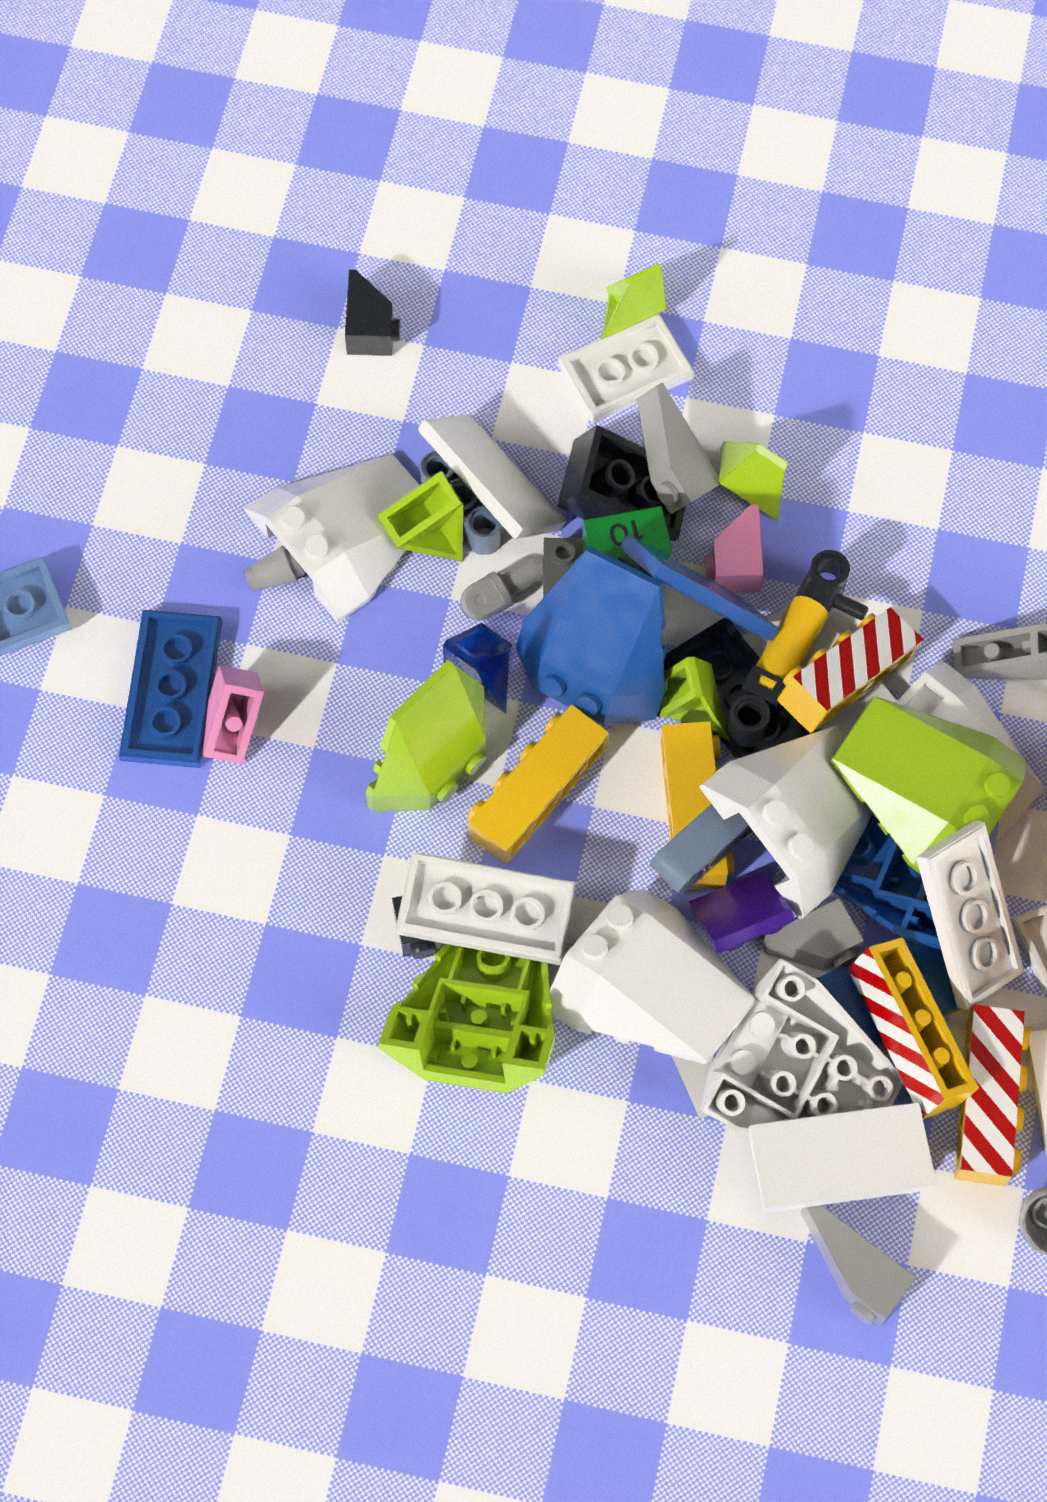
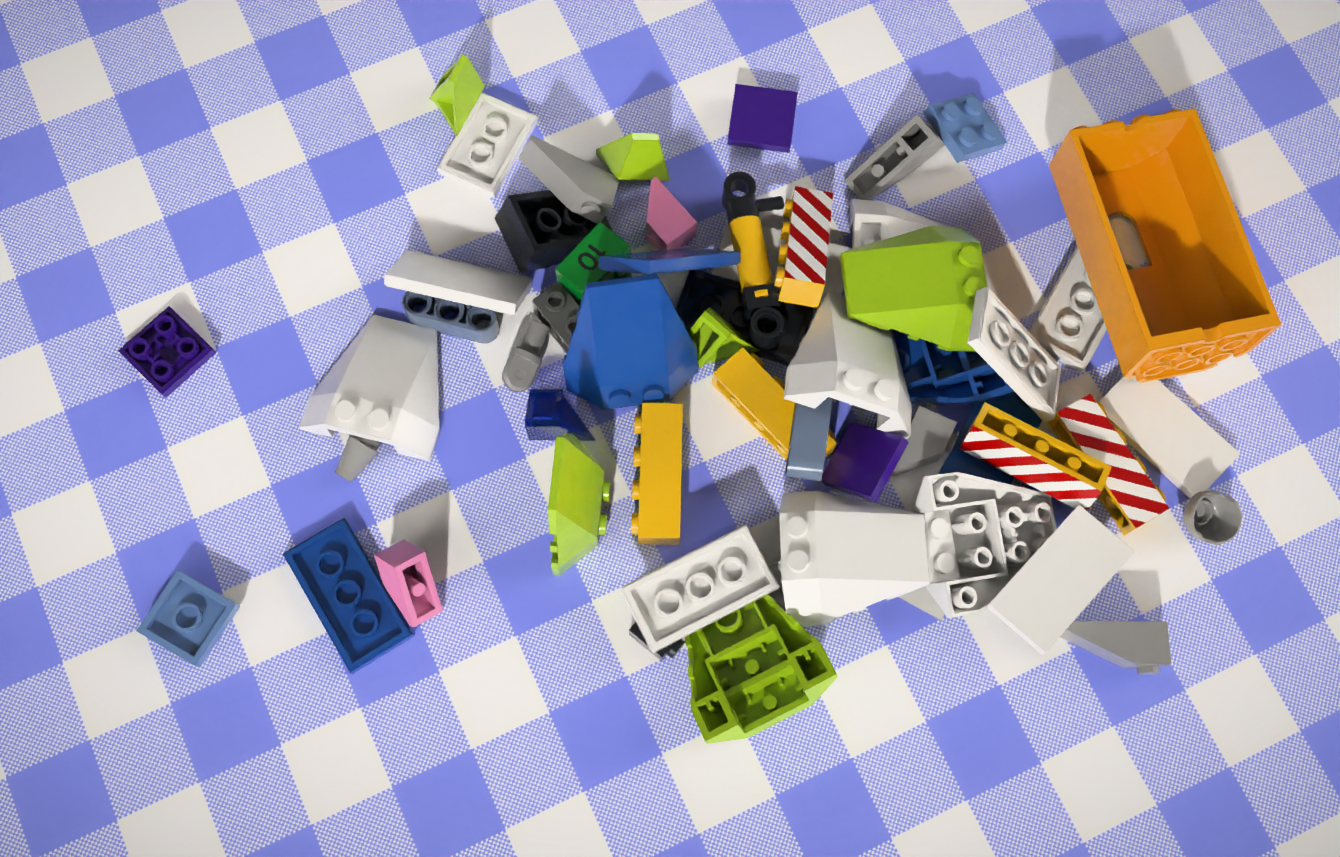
camera: 40 degrees left, 5 degrees up
(183, 360) = (167, 351): none -> dark purple tile
(369, 319) = (282, 229): black slope -> none
(428, 520) = (440, 343): lime slope -> none
(917, 522) = (762, 118): none -> dark purple tile

